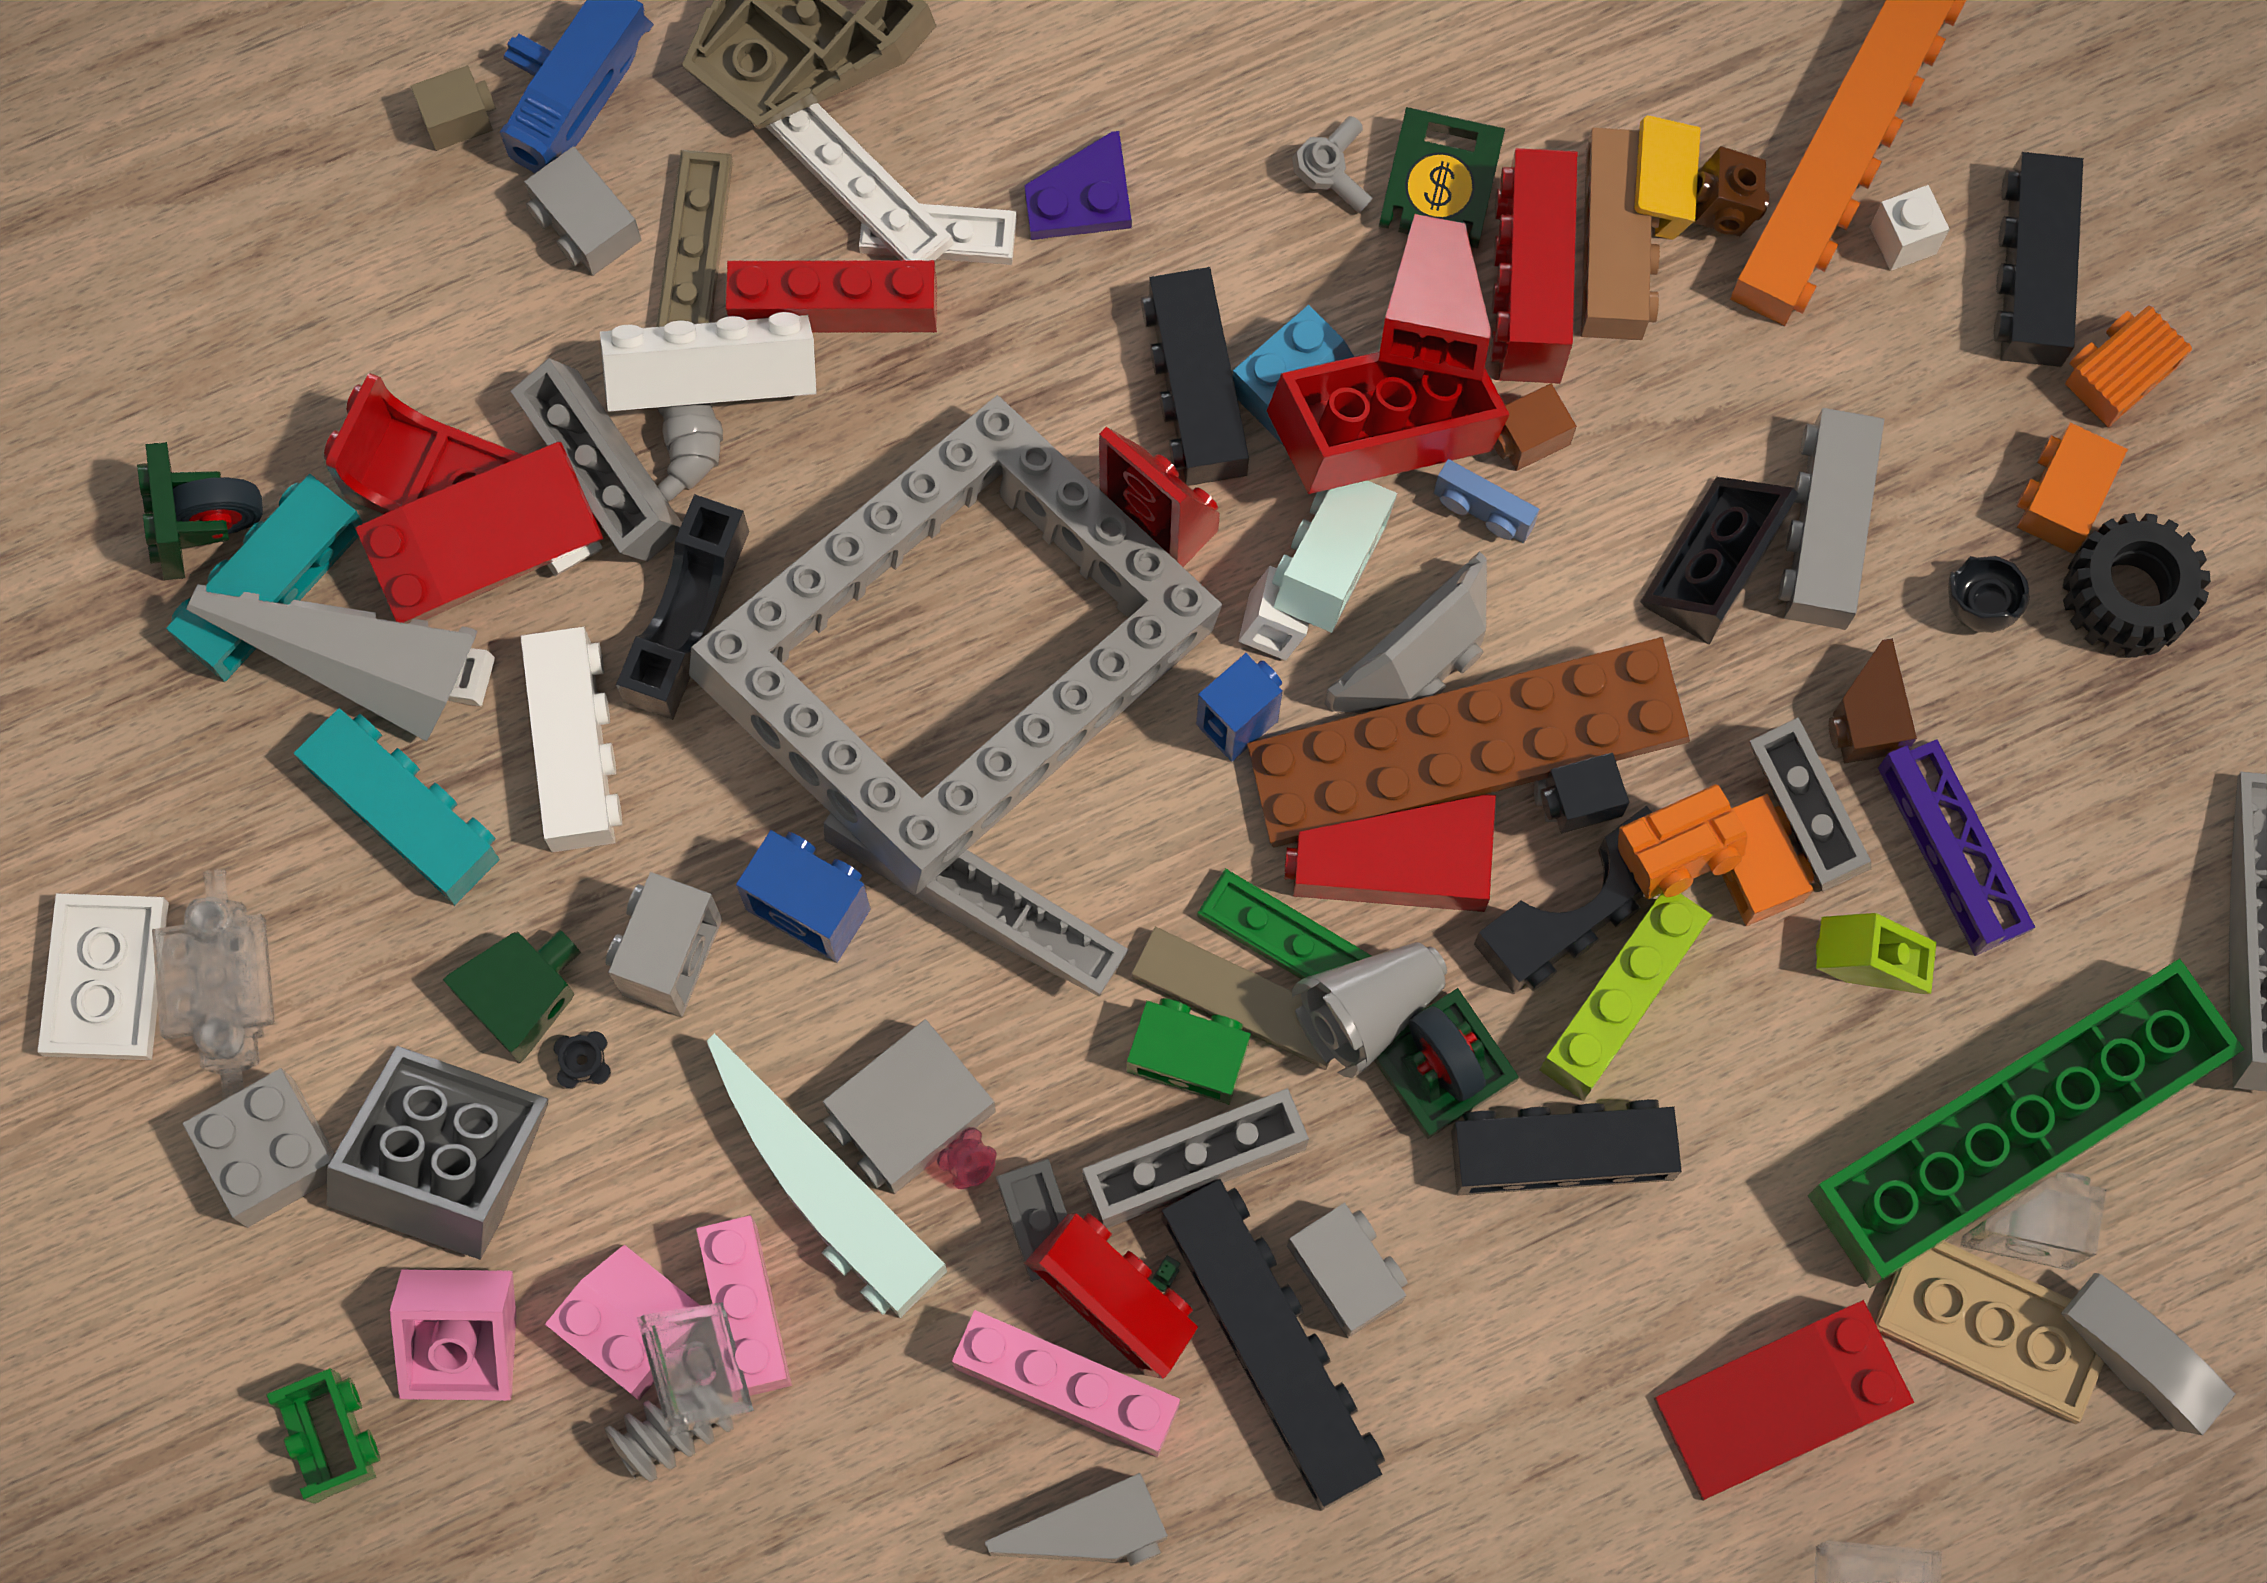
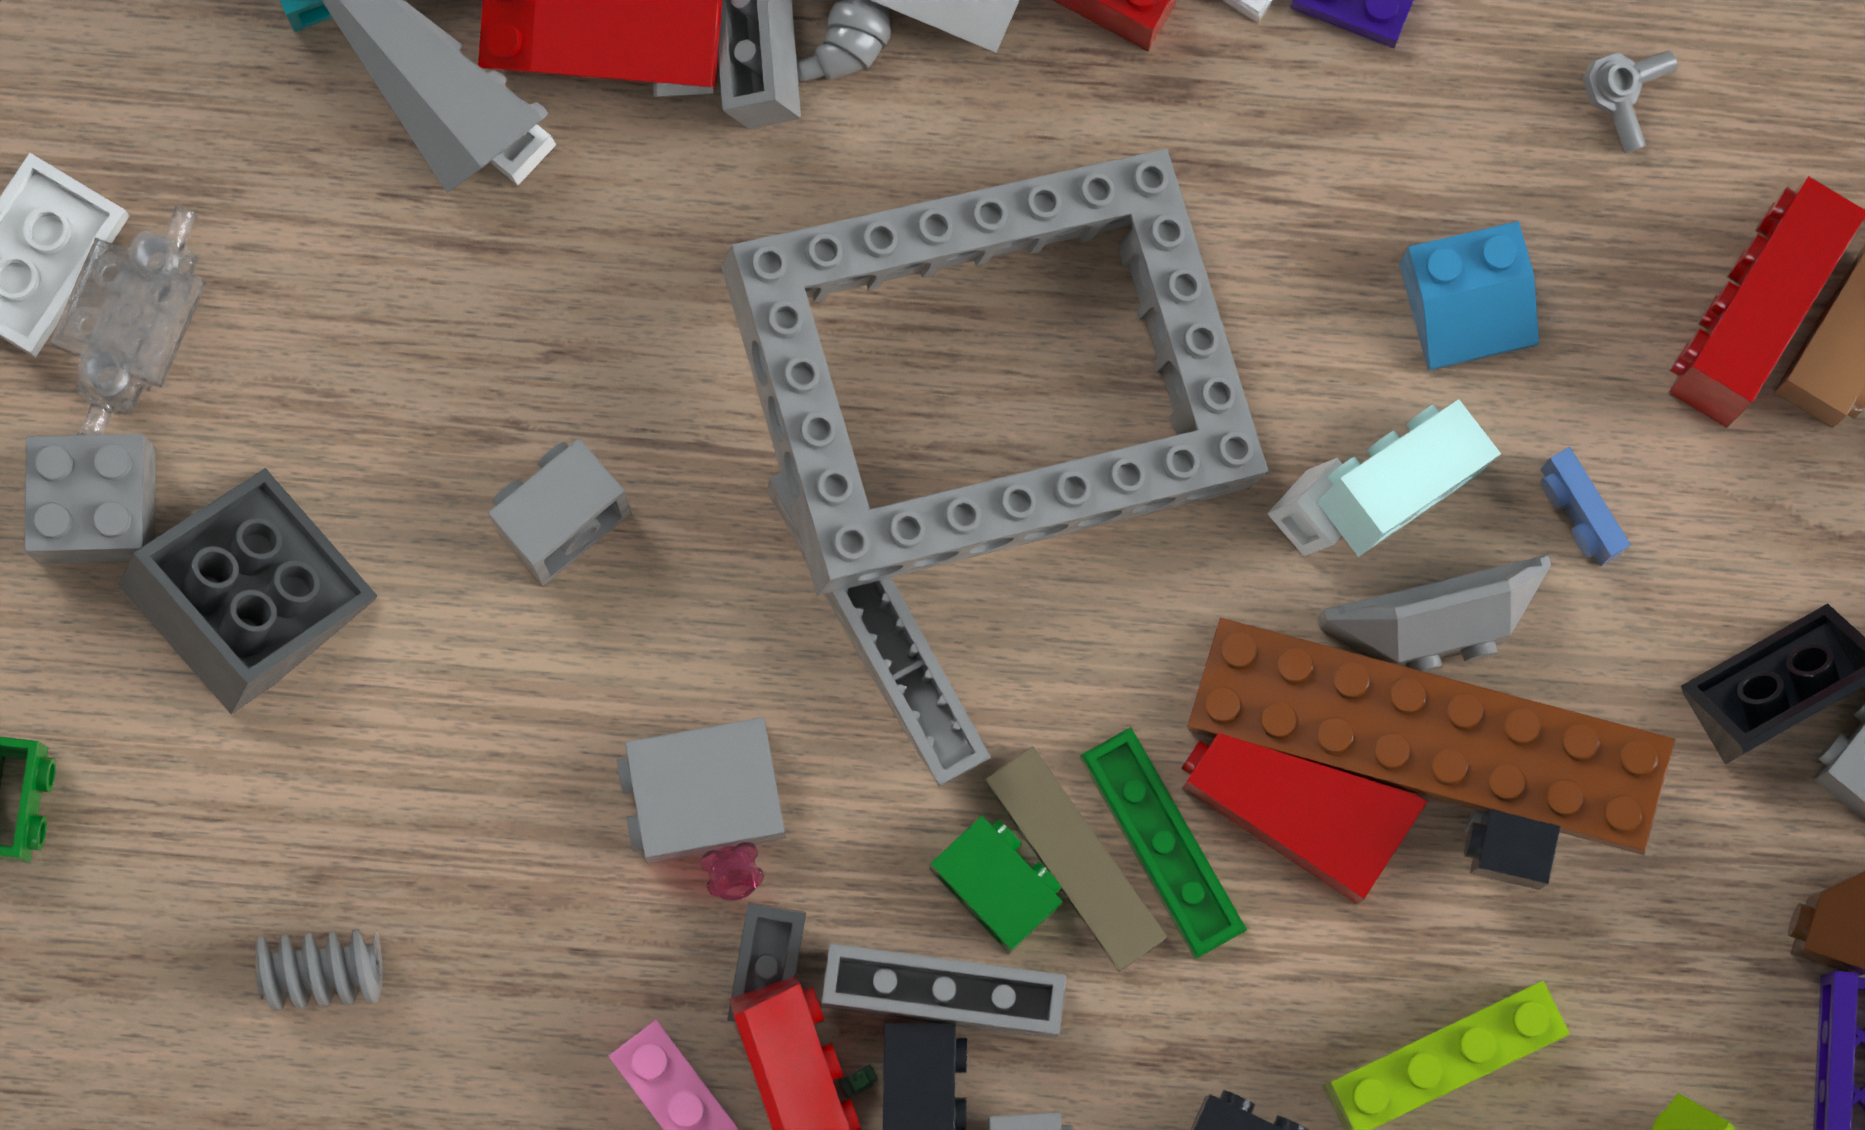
camera: 25 degrees right, 5 degrees up
(397, 805) = (386, 239): teal brick -> none
(454, 1334) = (170, 770): bright pink slope -> none
(516, 988) = (402, 476): dark green torso -> none
(568, 1051) = (418, 562): black plate -> none
(569, 739) = (580, 263): white brick -> none
(603, 1316) = (334, 847): bright pink slope -> none
(694, 1366) = (365, 929): clear slope -> none
(699, 575) = (790, 169): black arch -> none
(741, 1281) = (447, 894): bright pink brick -> none
(804, 894) = (714, 535): blue brick -> none
(830, 1196) = (583, 832): light aqua slope -> none
(1155, 497) = (1264, 332): red slope -> none
(1197, 377) = (1373, 232): black brick -> none
(1240, 705) = (1231, 579): blue brick -> none
(1367, 1003) = (1191, 935): light grey cone -> none
(1380, 419) = (1534, 370): red brick -> none
(1437, 304) = (1643, 288): slope -> none
(1441, 178) = (1720, 167): dark green container -> none
(1445, 1064) = (1232, 1029): dark green plate -> none
(1529, 940) = (1381, 959): black arch -> none
(1535, 428) = (1671, 458): dark orange brick -> none
(1683, 843) = (1580, 950): orange brick -> none
(1770, 872) = (1650, 1002): orange brick -> none
(1810, 804) = (1729, 978): light grey brick -> none

